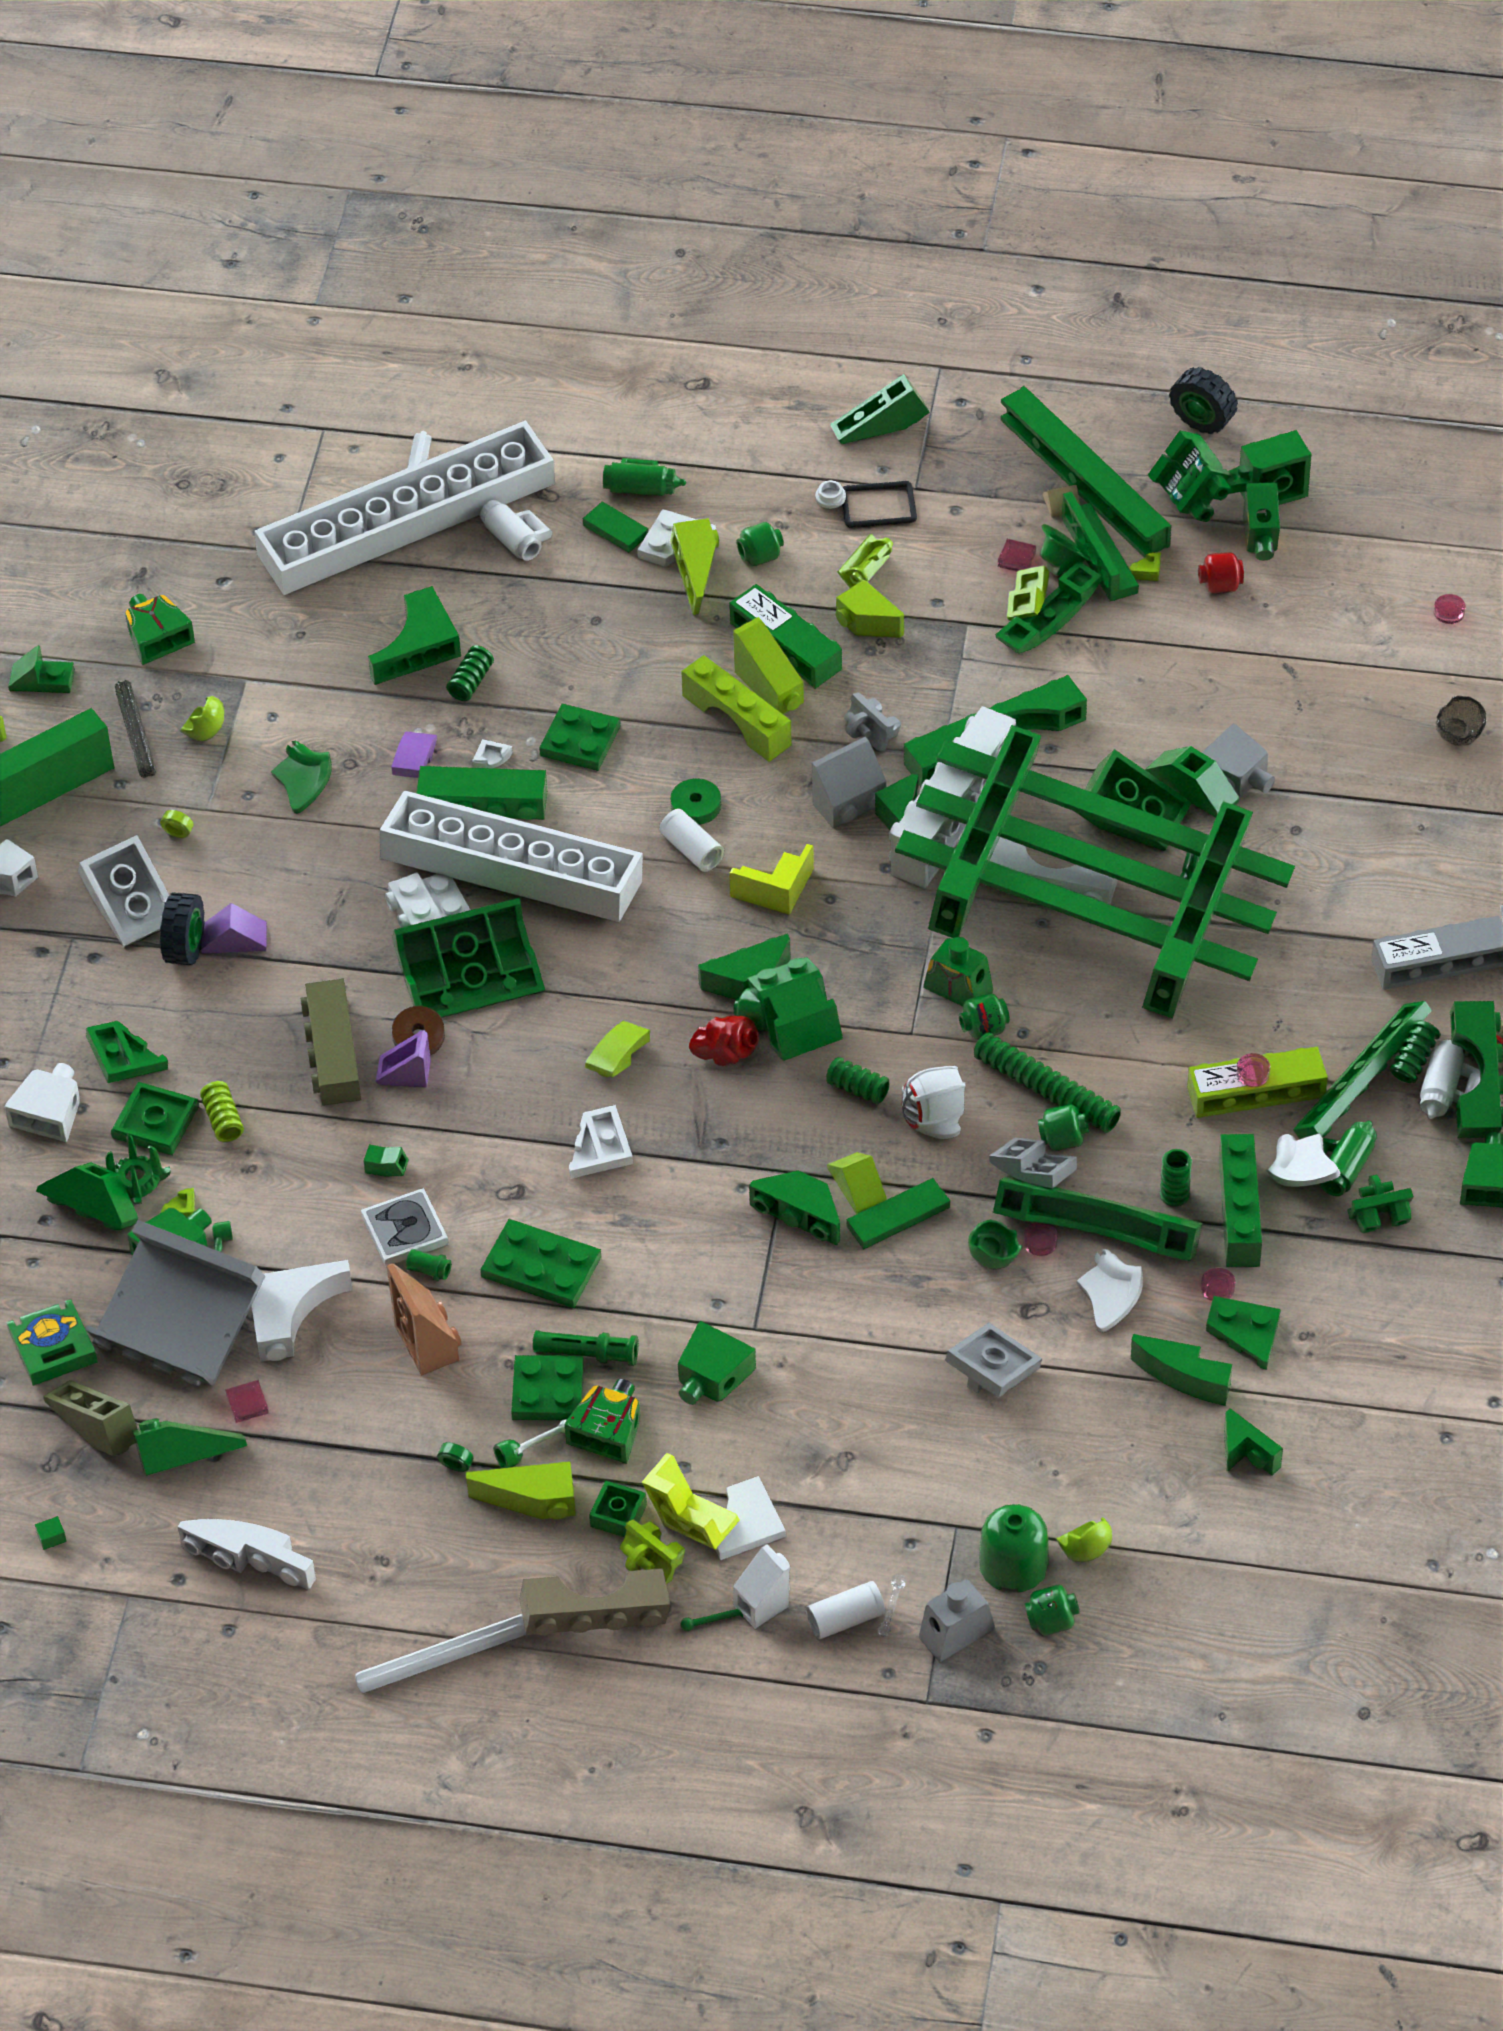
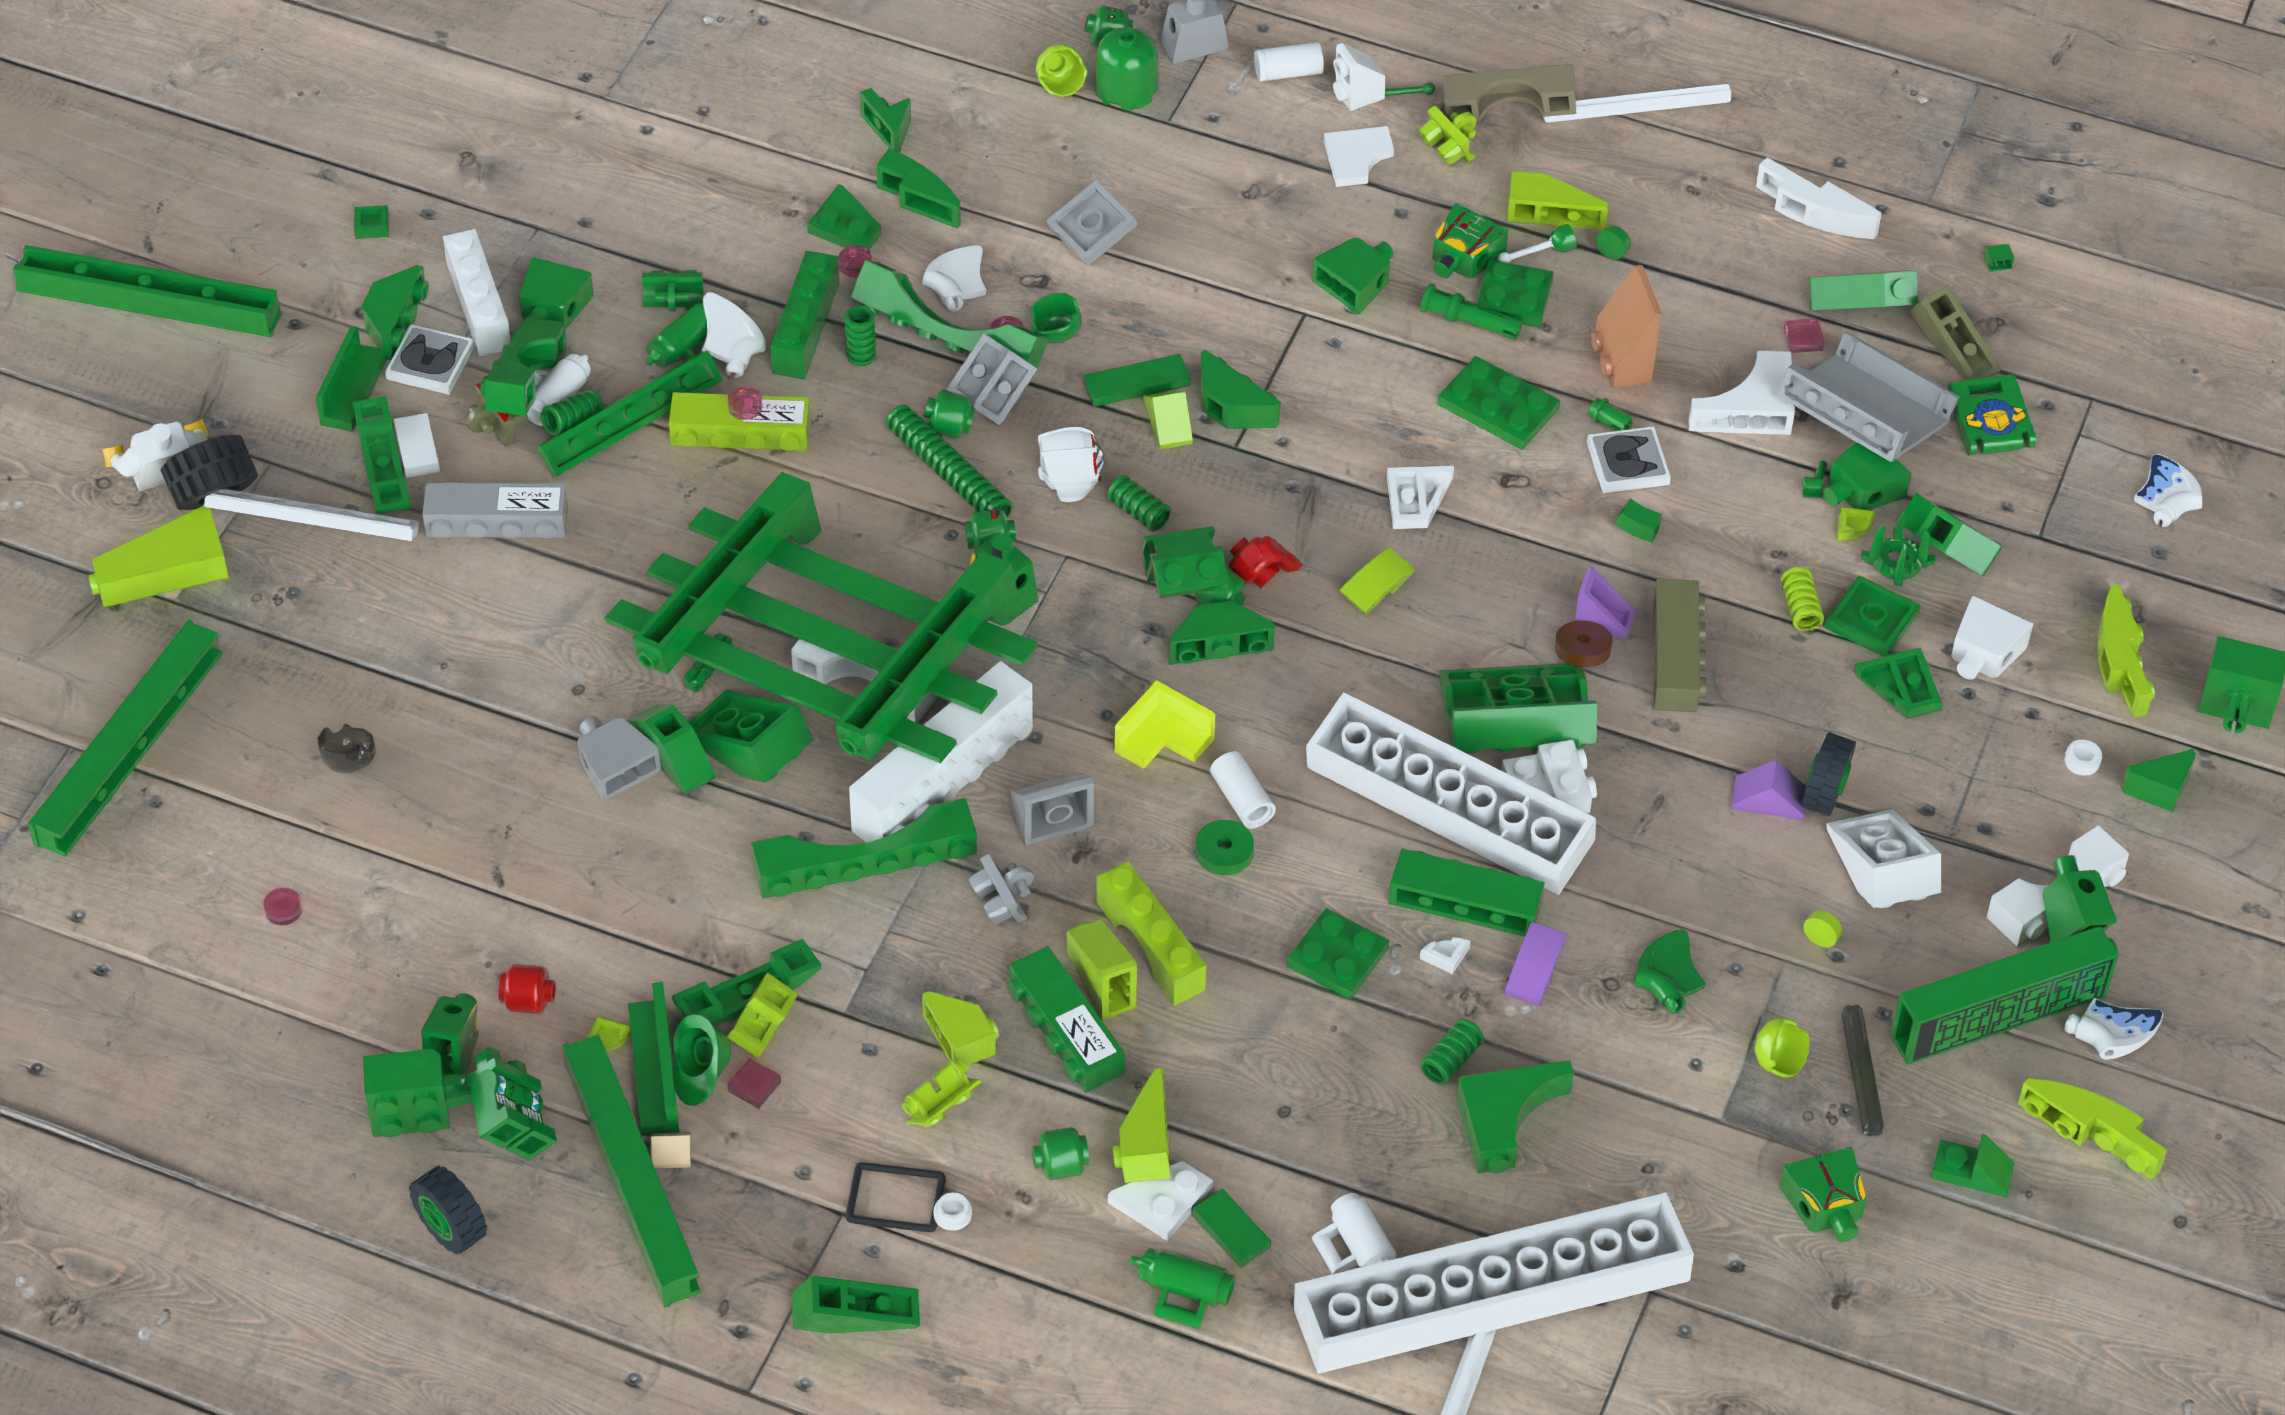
camera: 170 degrees left, 0 degrees up
(616, 1507) = (1471, 179): green piece -> none
(682, 1509) = (1409, 147): neon yellow panel -> none
(893, 800) = (997, 781): green slope -> none

